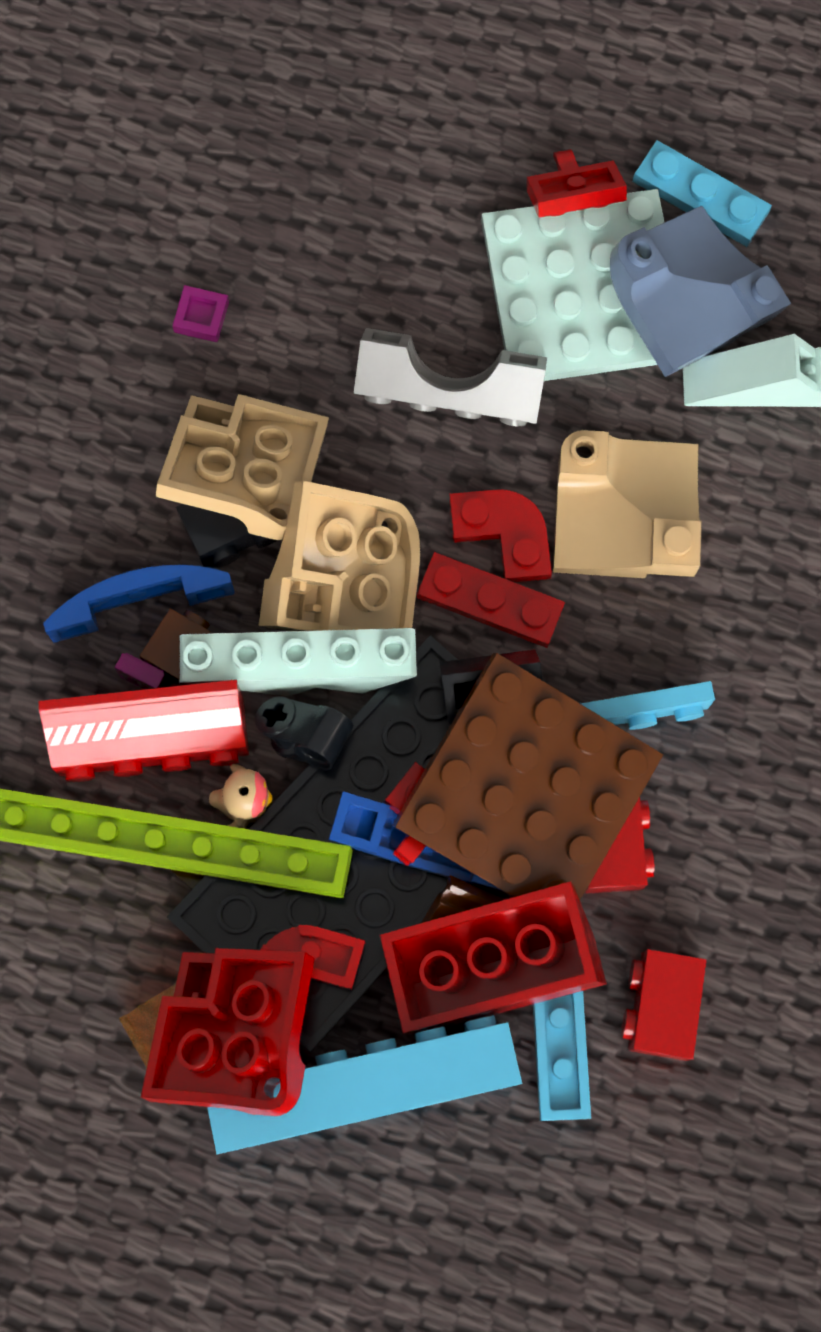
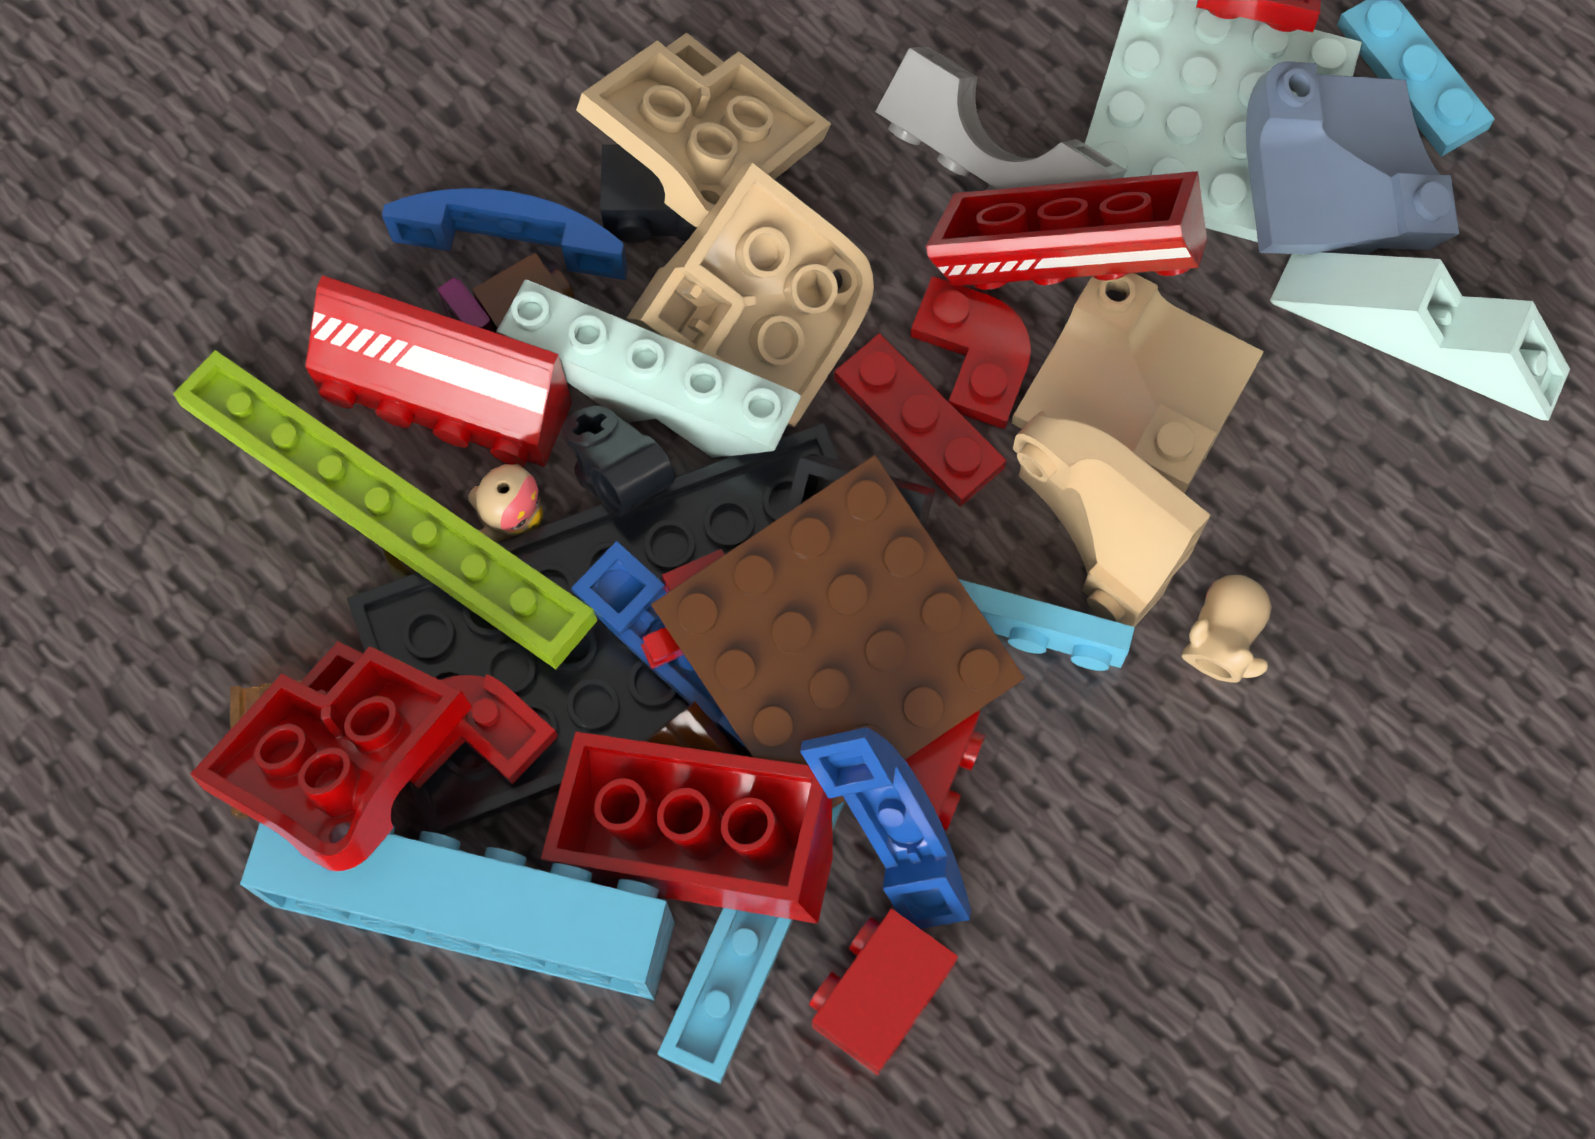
camera: 30 degrees right, 5 degrees down
(537, 422) = (1071, 231): none -> red slope
(630, 894) = (897, 820): none -> blue slope
(666, 611) = (1117, 510): none -> tan slope
(767, 646) = (1227, 625): none -> tan animal

